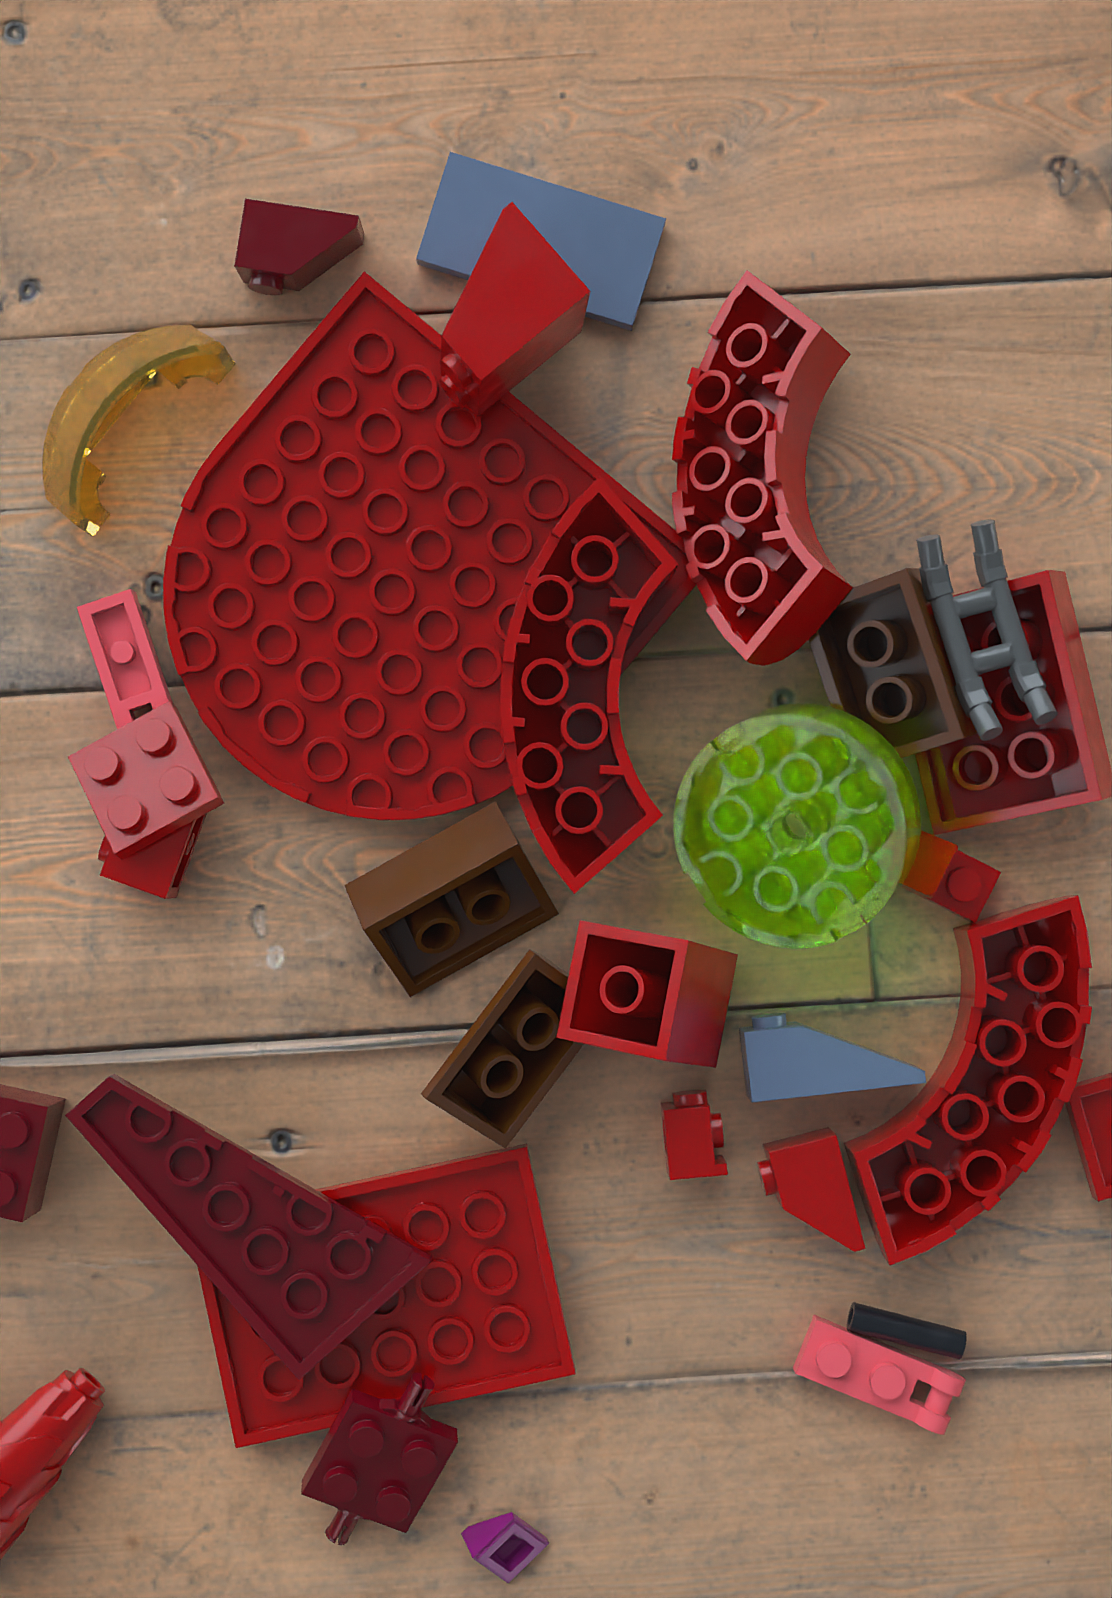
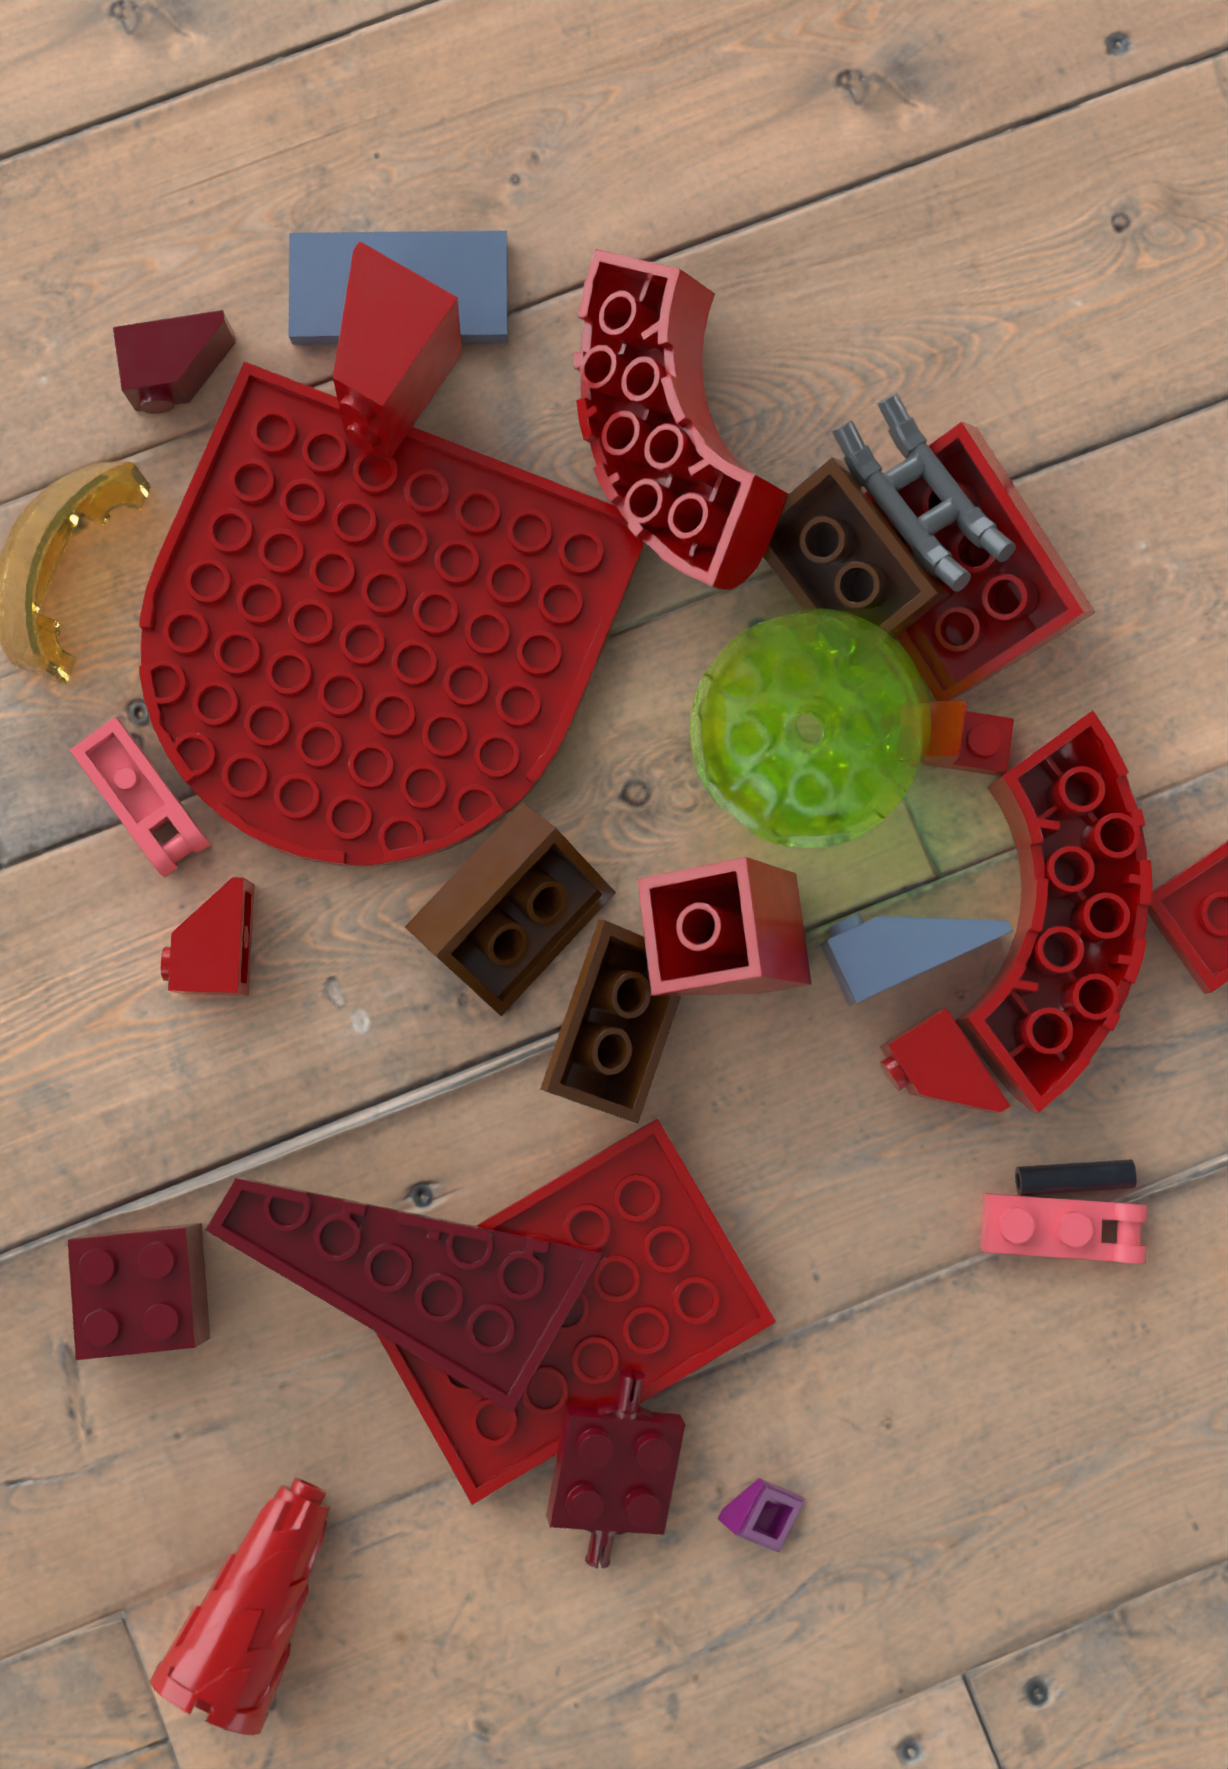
camera: 25 degrees left, 5 degrees down
(145, 780) = (184, 886): plate -> none
(565, 680) = (551, 668): red brick -> none
(691, 1136) = (810, 1057): red brick -> none

